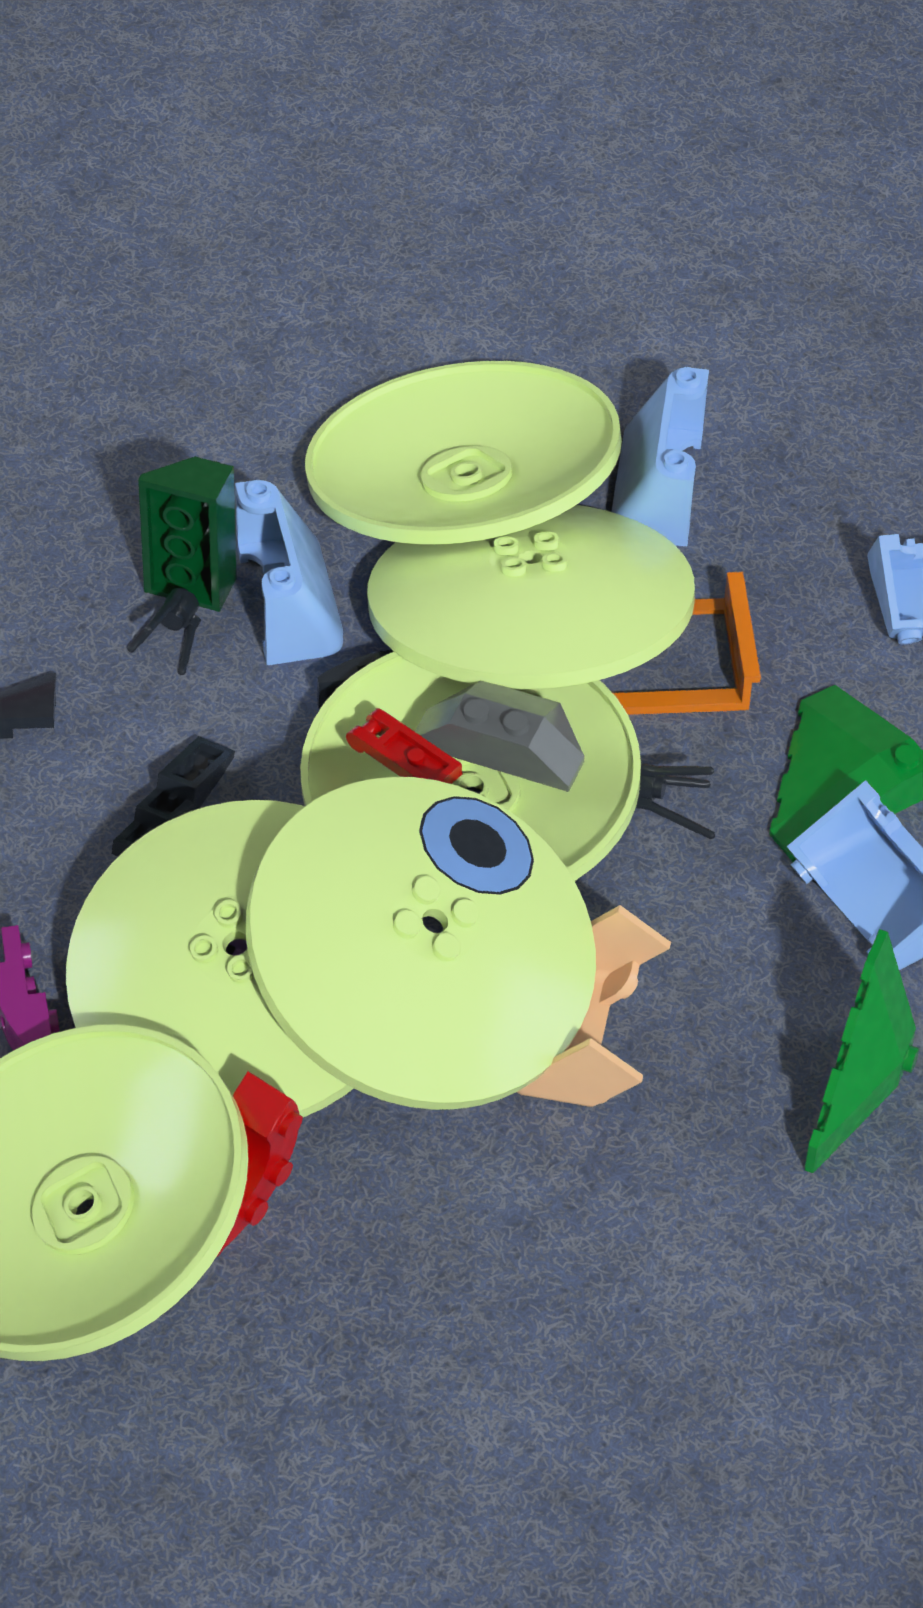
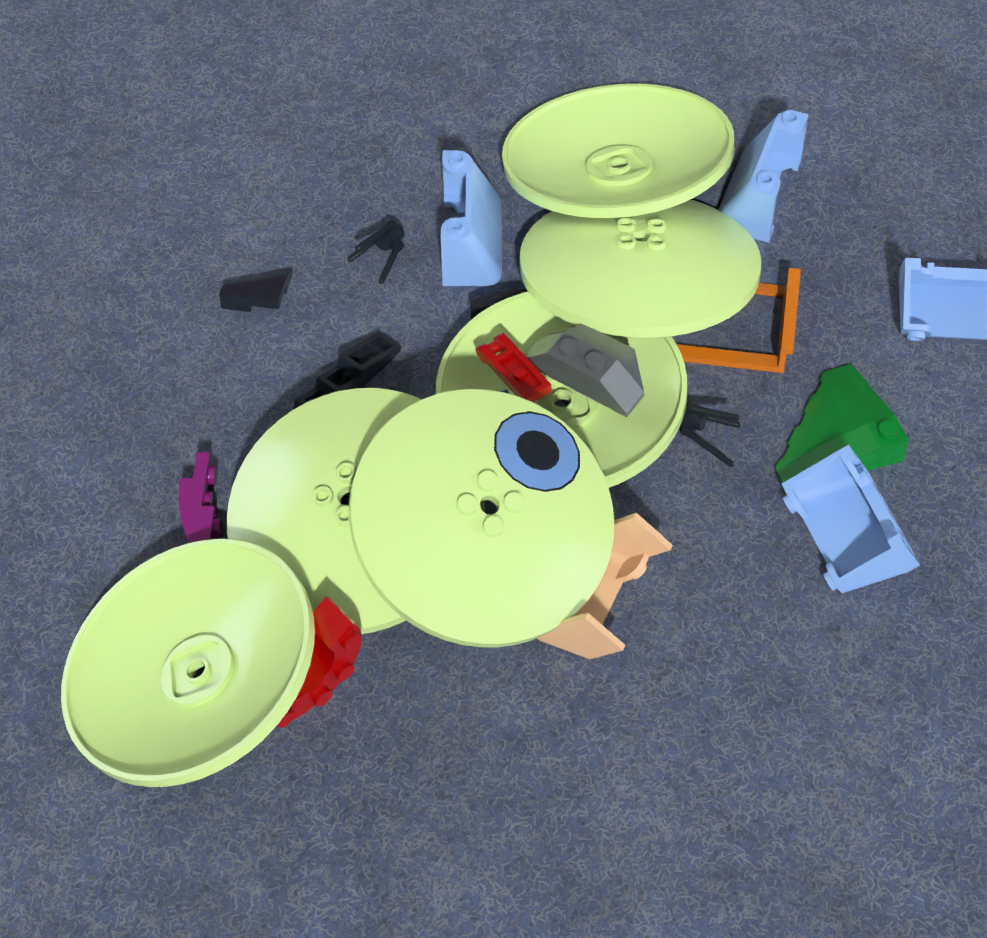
camera: 15 degrees right, 5 degrees up
(189, 530) = (403, 180): dark green slope -> none
(872, 1054) = (802, 659): green slope -> none

